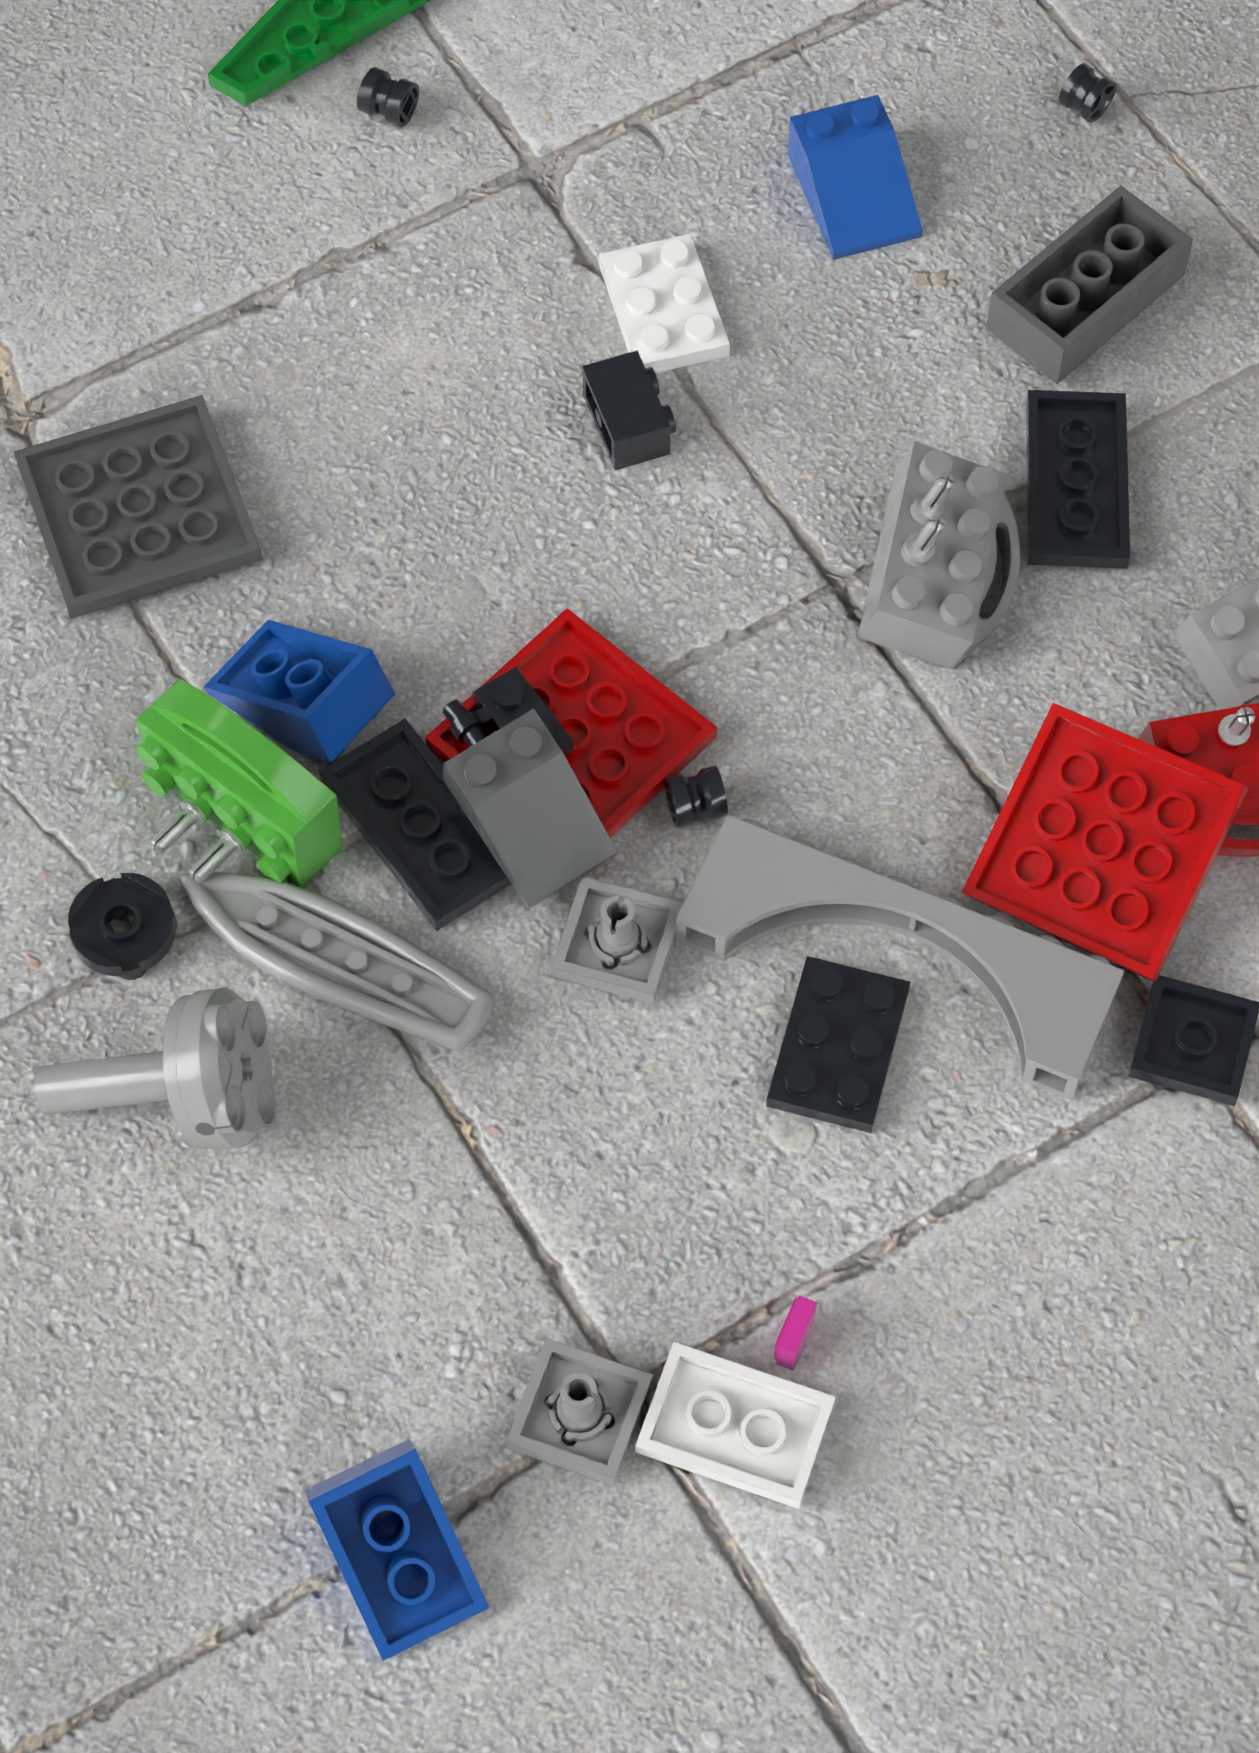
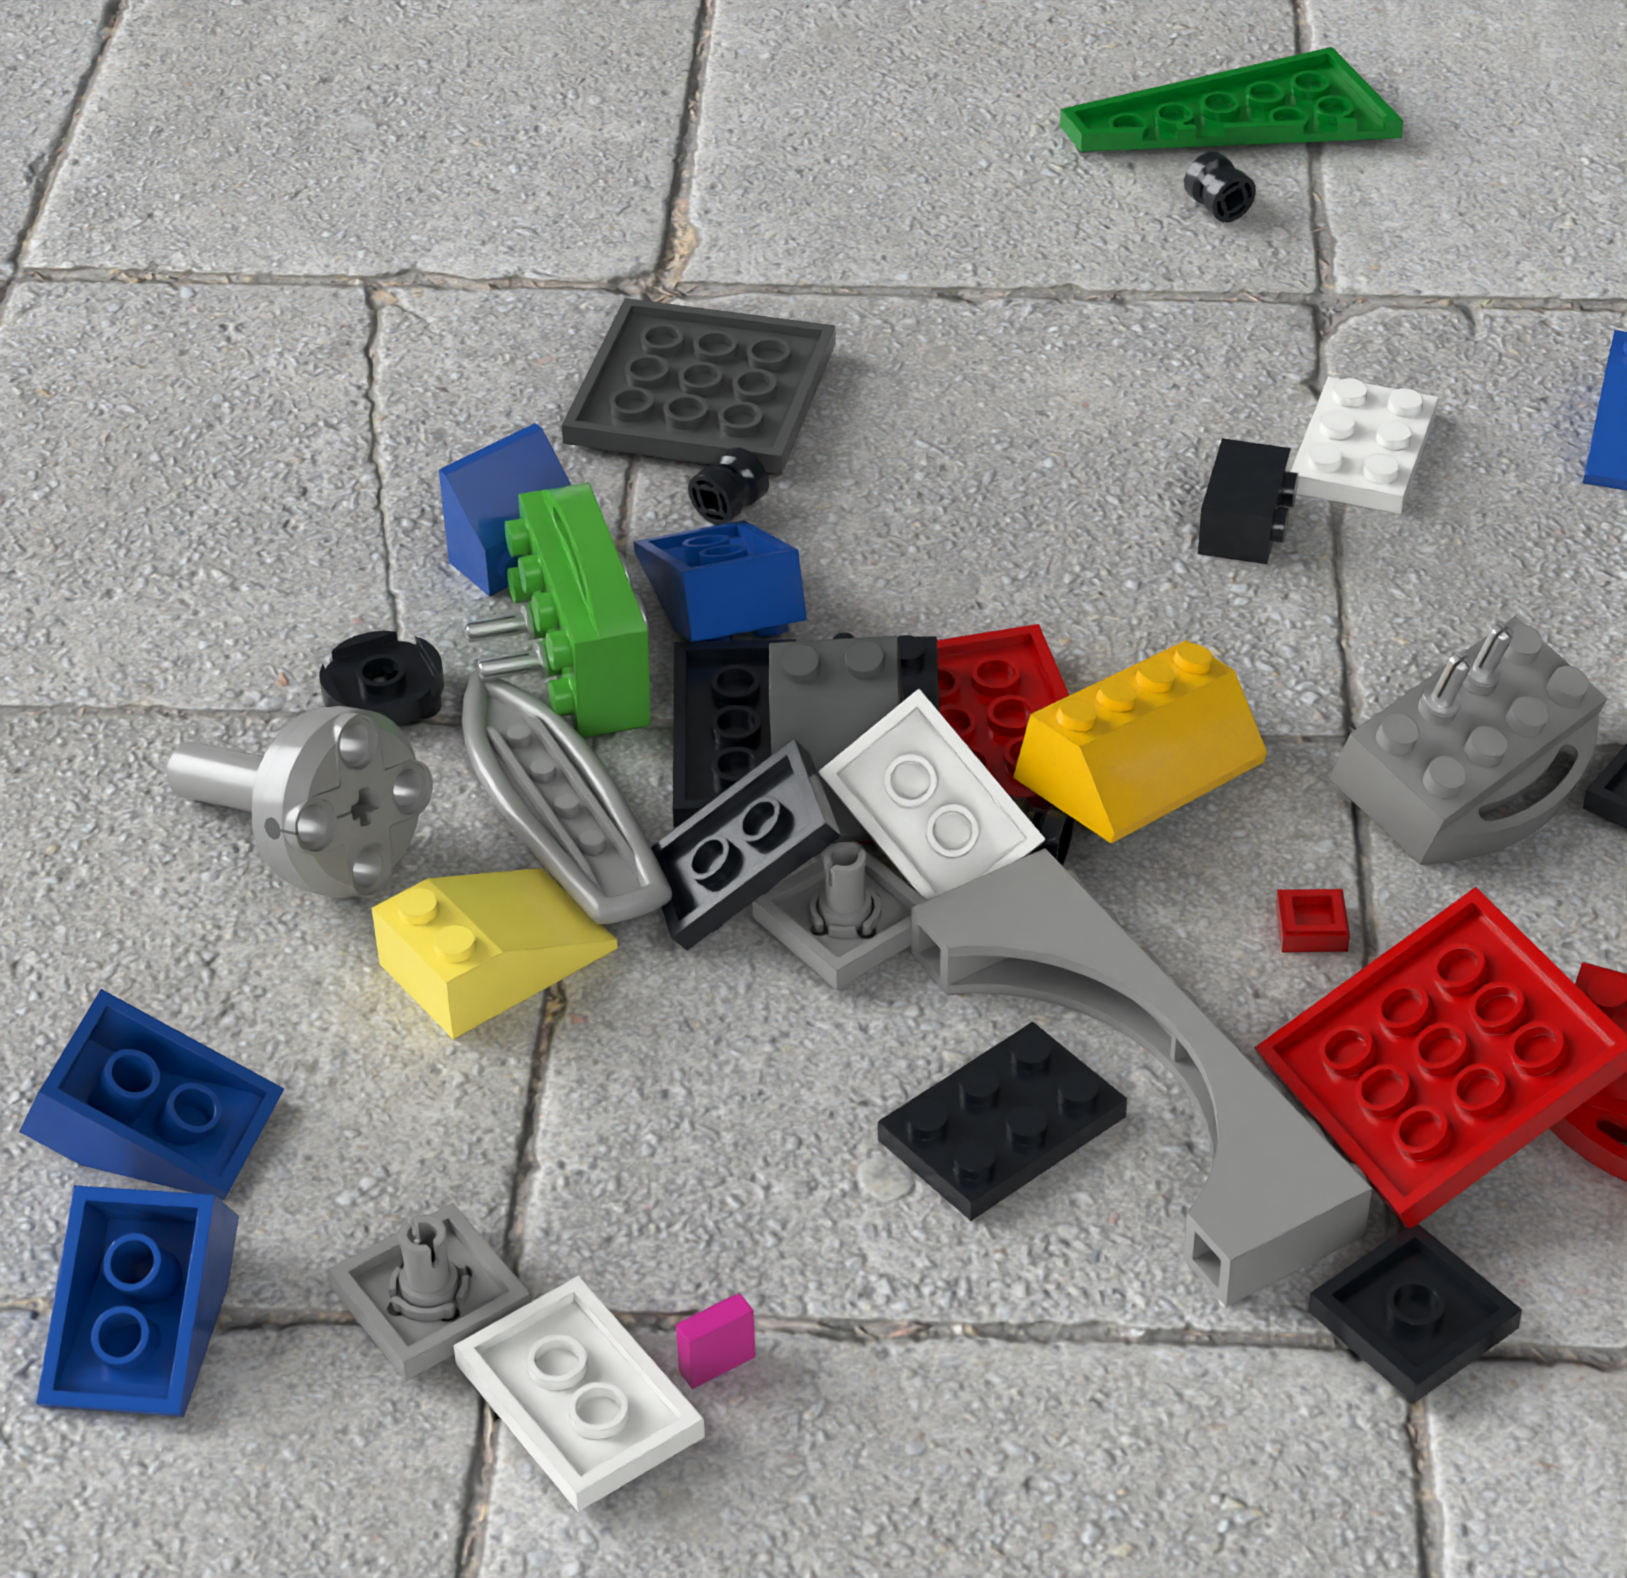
camera: 35 degrees right, 20 degrees down
(99, 721) = (483, 494): none -> blue slope
(241, 592) = (722, 493): none -> black wheel
(267, 1388) = (150, 1103): none -> blue slope
(390, 1110) = (484, 942): none -> light yellow slope
(524, 930) = (744, 843): none -> black plate
(634, 827) = (929, 800): none -> white plate
(729, 685) = (1141, 741): none -> yellow slope
(920, 760) = (1312, 920): none -> red tile

